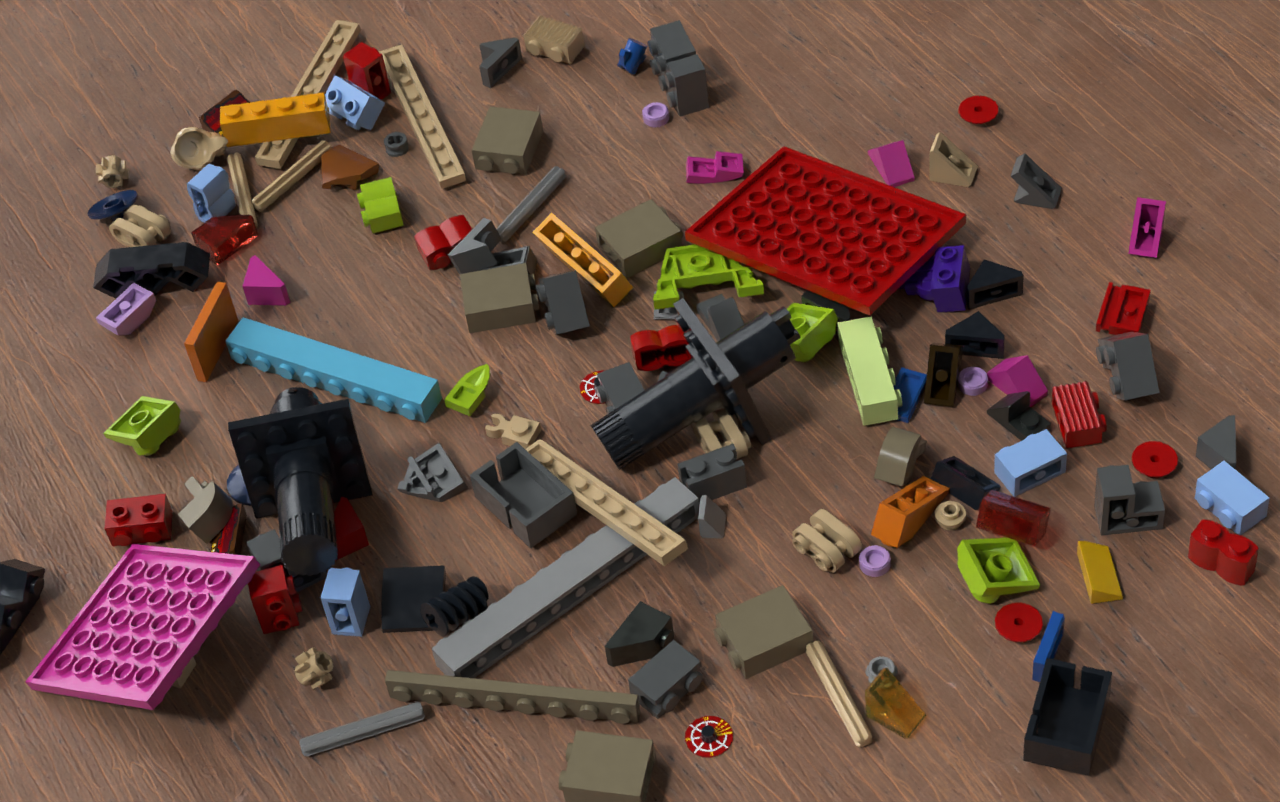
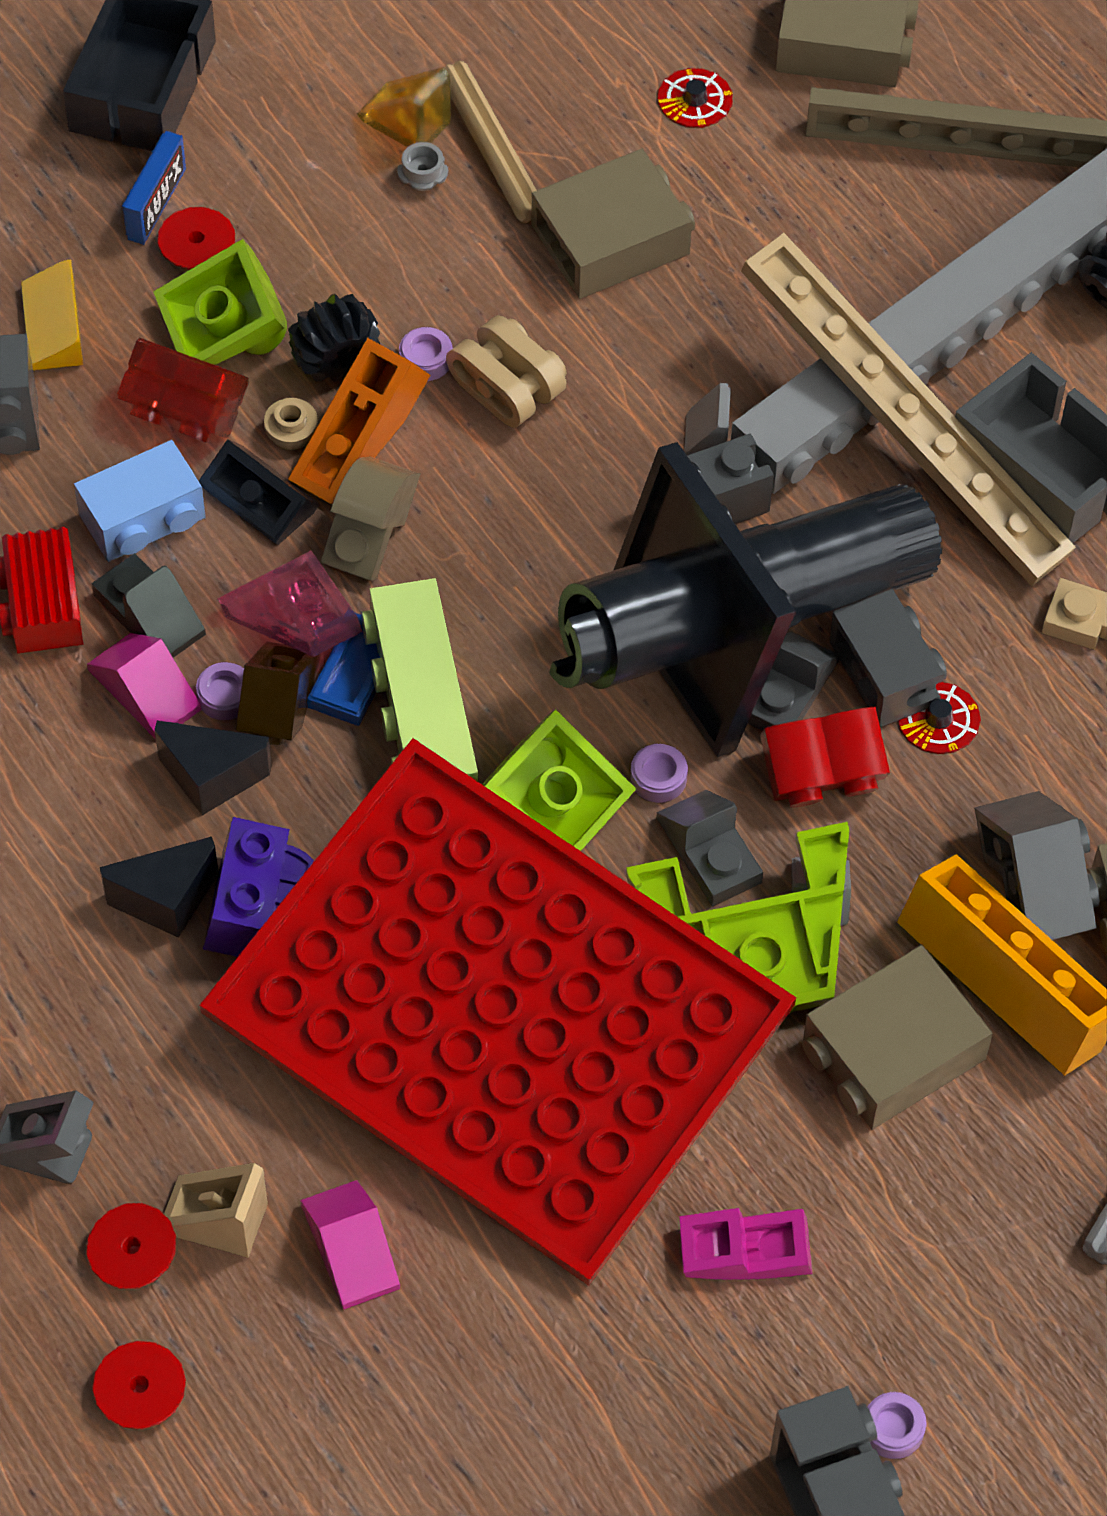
camera: 170 degrees right, 10 degrees up
(640, 636) = (817, 215): pearl dark grey slope -> none
(666, 679) = (767, 153): dark grey brick -> none
(927, 544) = (331, 336): none -> black gear
(937, 412) = (294, 607): none -> clear pink wing
(988, 154) = (131, 1246): none -> red piece

